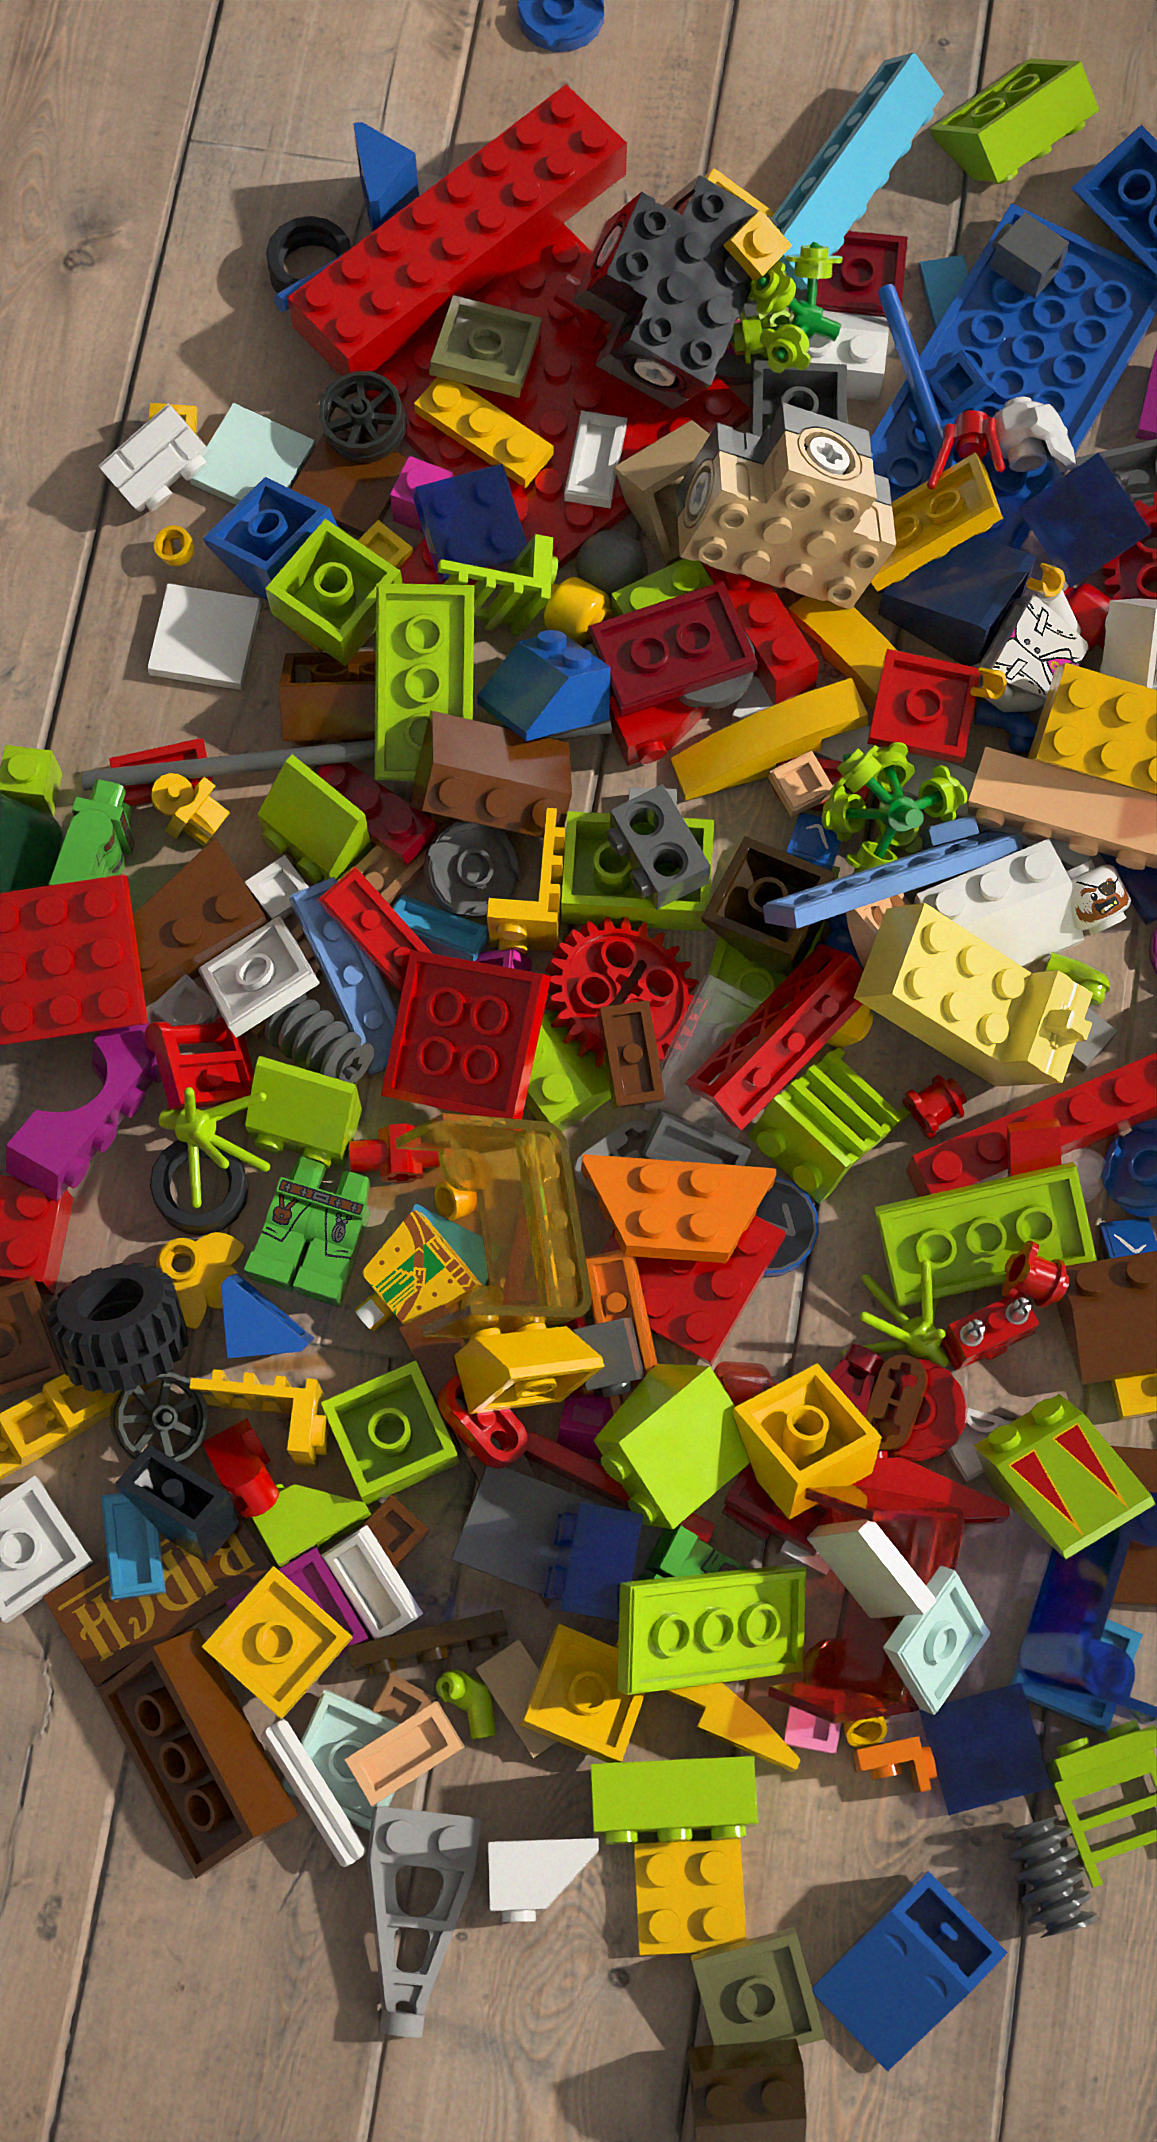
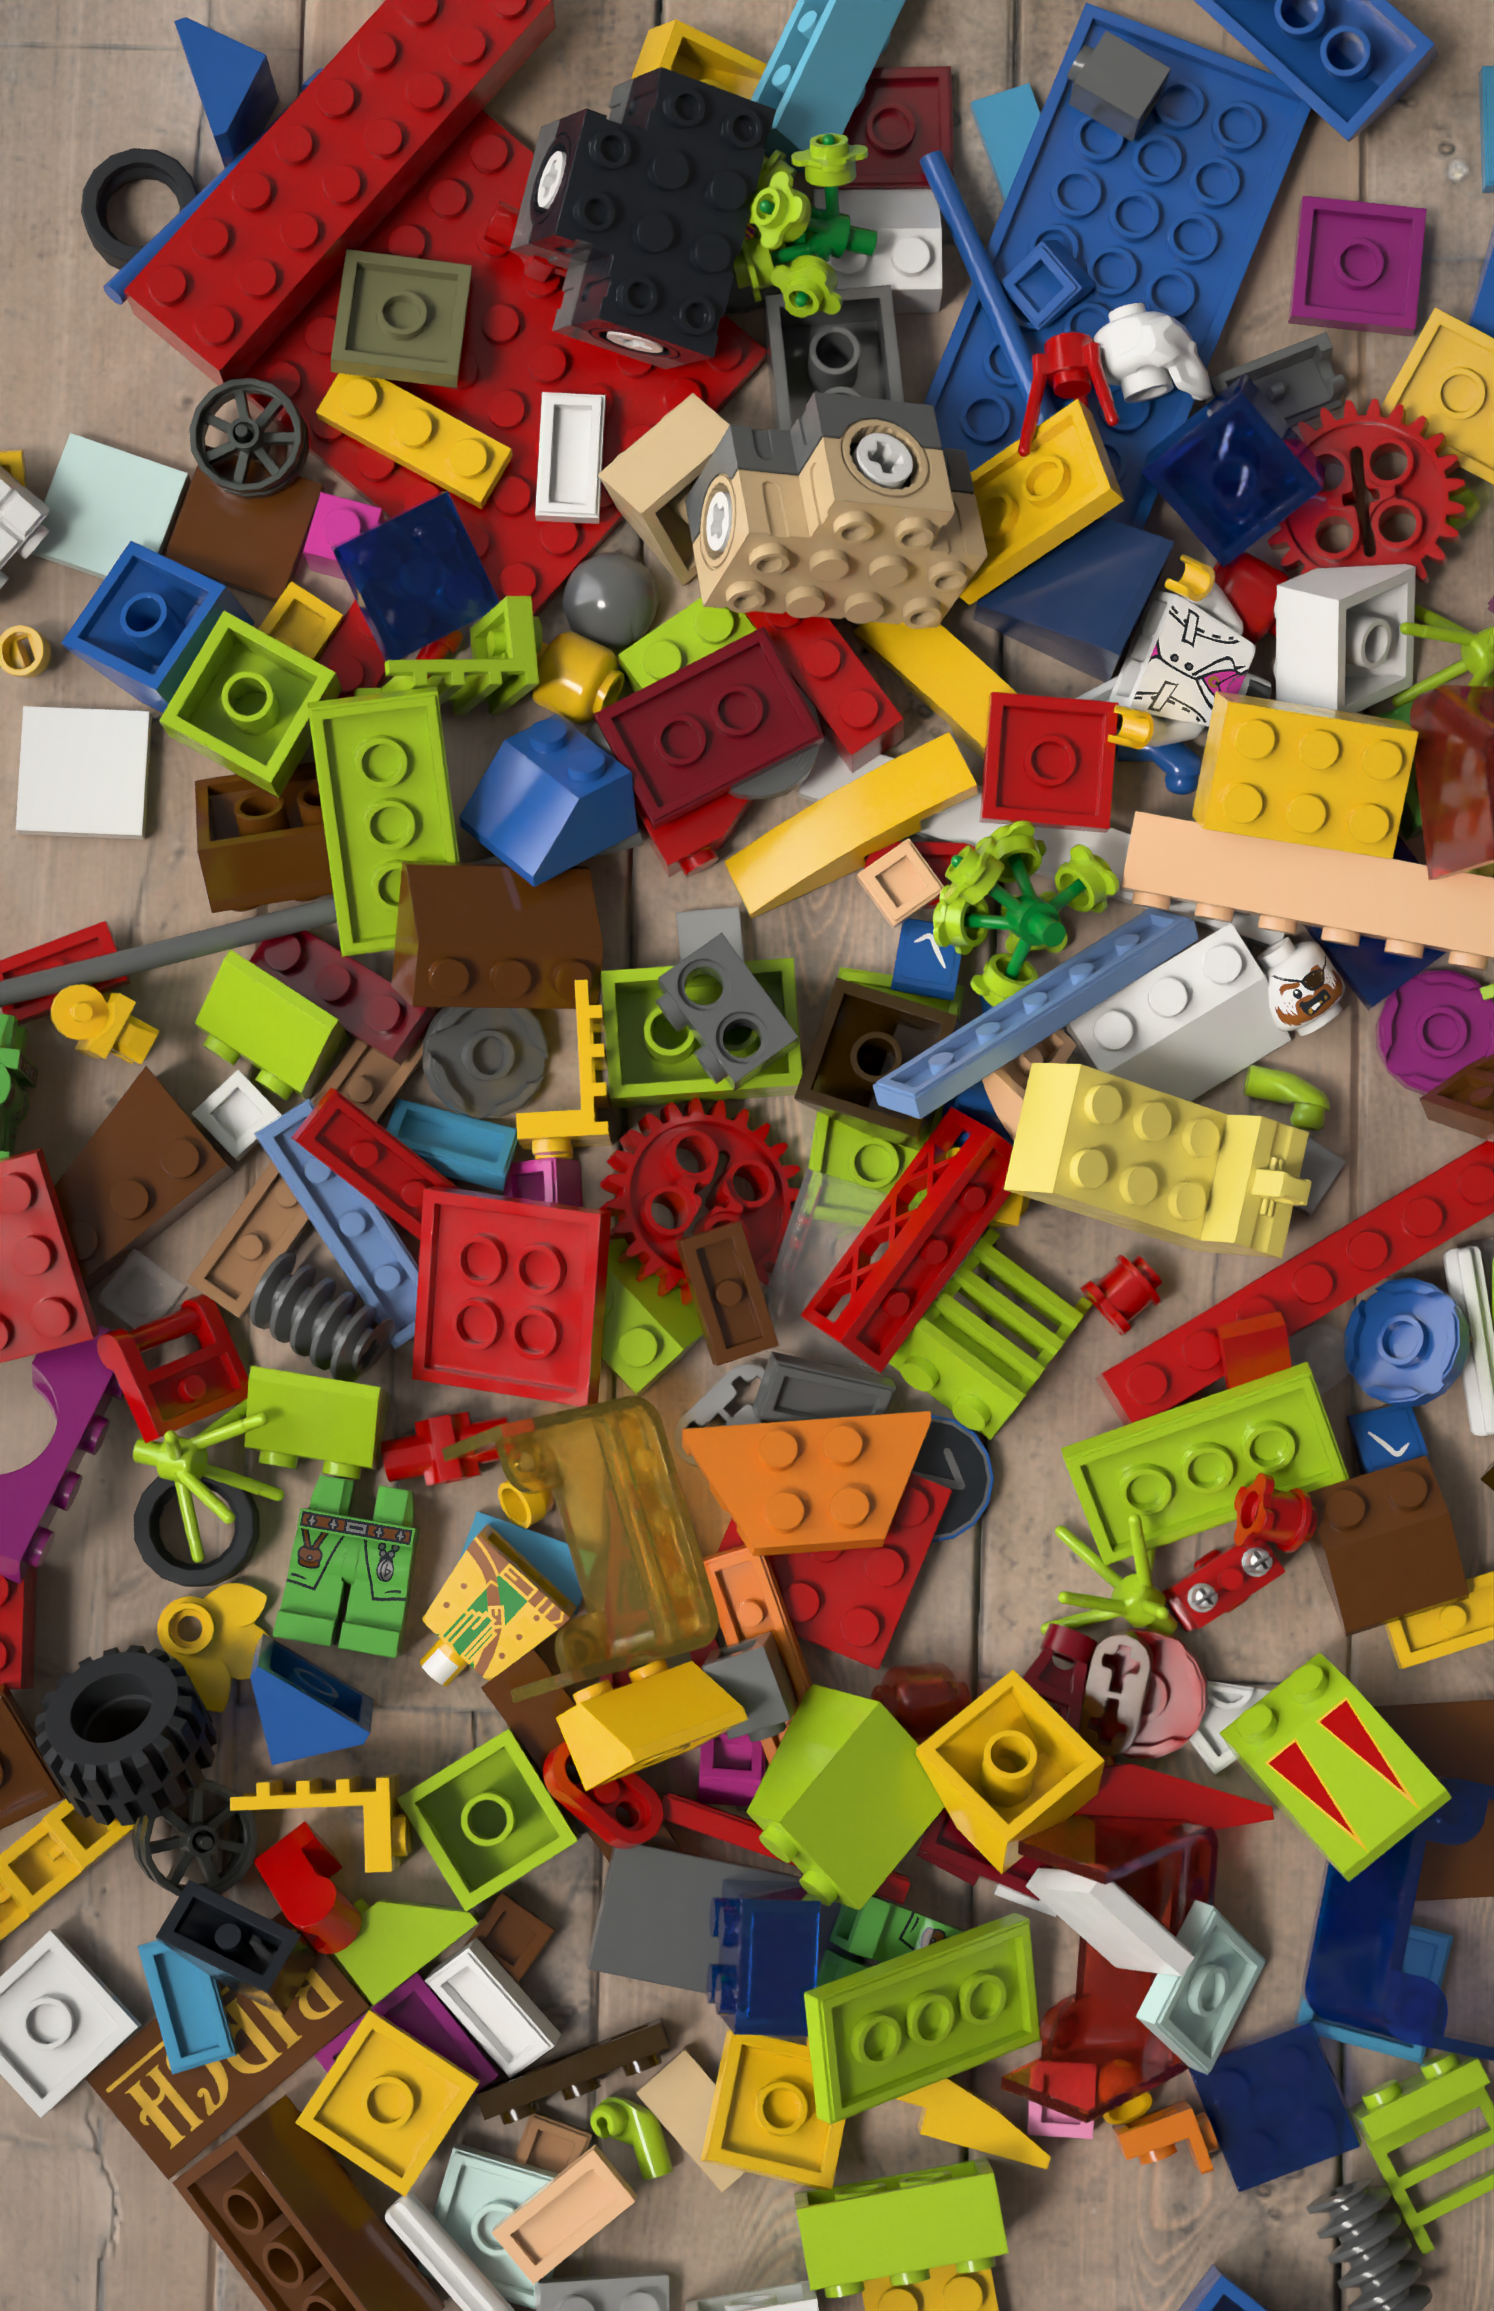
camera: 10 degrees left, 10 degrees up
(258, 976) = (230, 1244): white tile -> none
(757, 245) = (752, 155): yellow plate -> none
(949, 832) = (1092, 927): medium blue tile -> none

